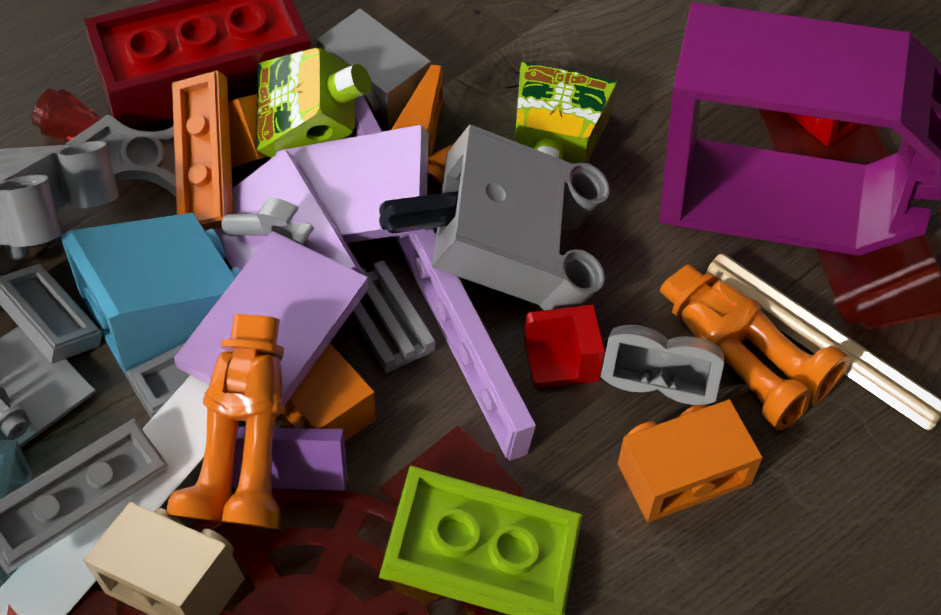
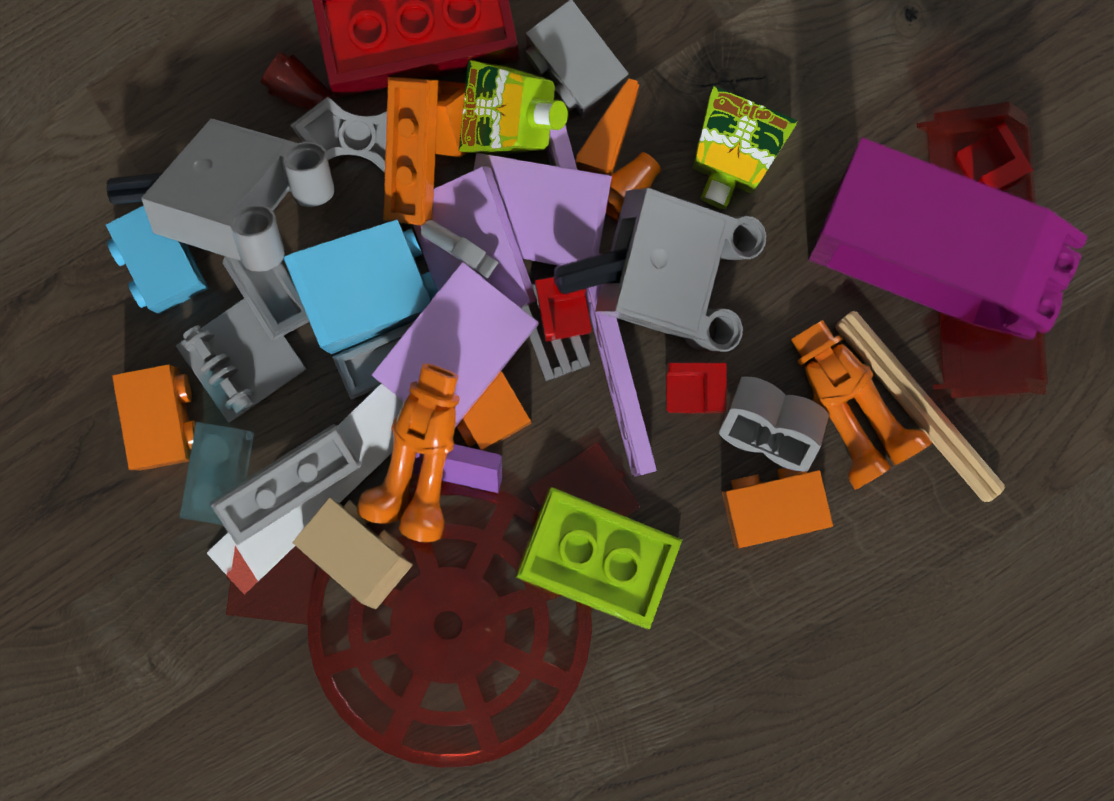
camera: 15 degrees right, 30 degrees up
(393, 276) = (561, 313): none -> red panel

